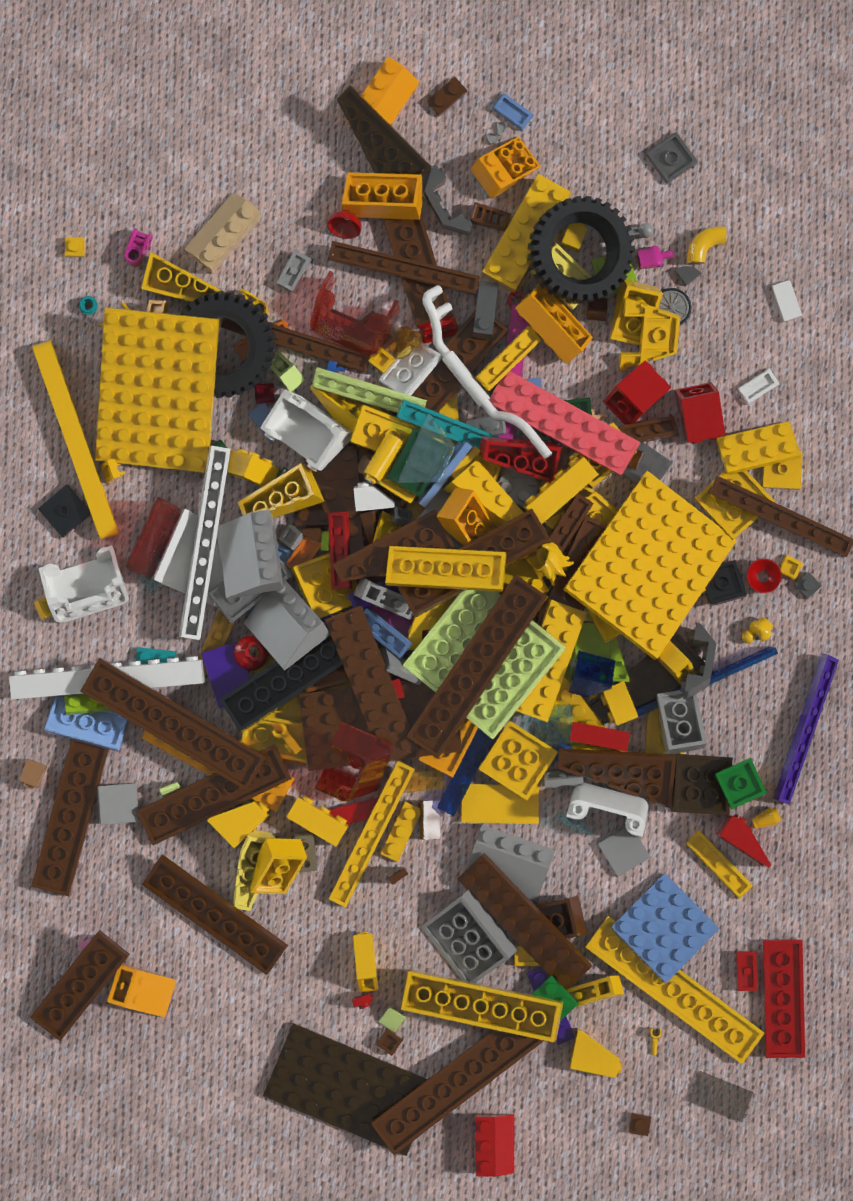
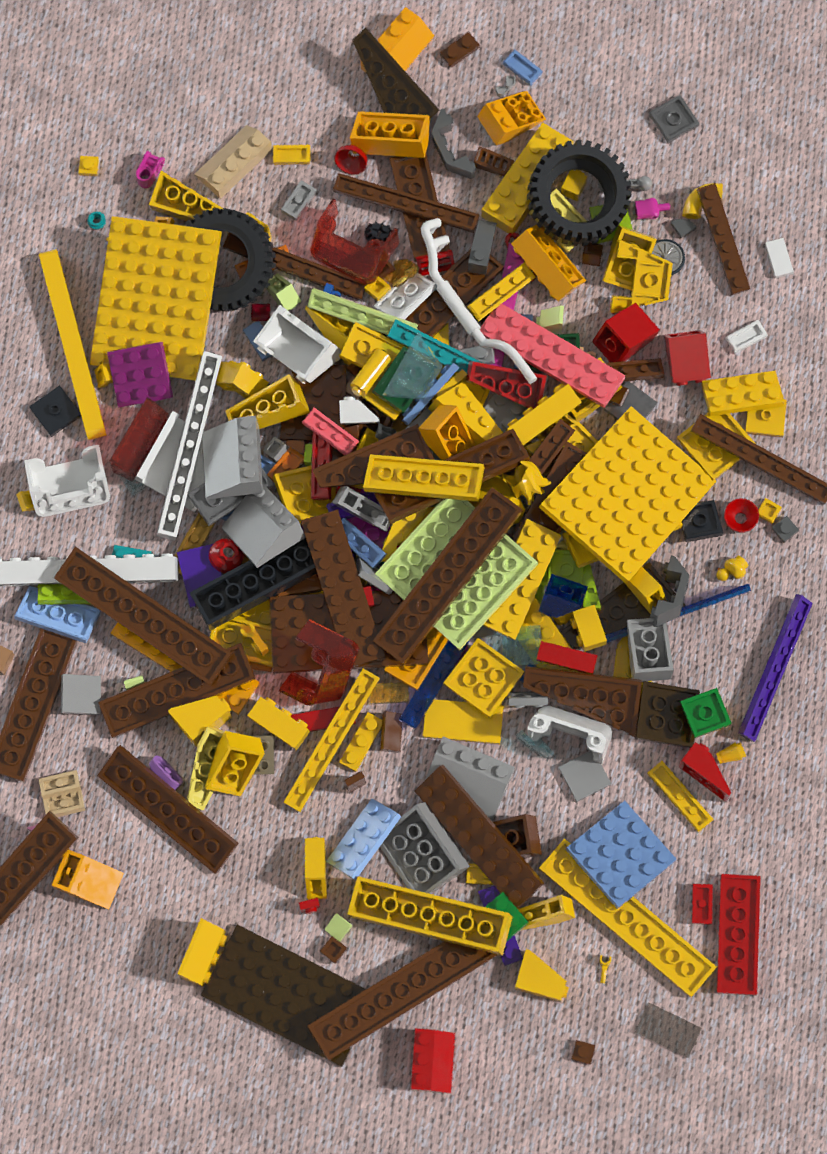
camera: 10 degrees right, 10 degrees down
(108, 905) = (62, 794): none -> tan slope
(148, 469) = (140, 374): none -> magenta plate
(209, 876) = (165, 772): none -> medium lavender plate
(261, 1056) = (202, 953): none -> yellow slope
(282, 221) = (291, 154): none -> yellow tile
(346, 520) = (330, 432): none -> coral tile
(371, 298) = (372, 230): none -> black gear
(410, 931) = (363, 839): none -> light blue plate
(561, 384) = (551, 319): none -> yellowish green slope
(729, 286) = (723, 239): none -> reddish brown plate

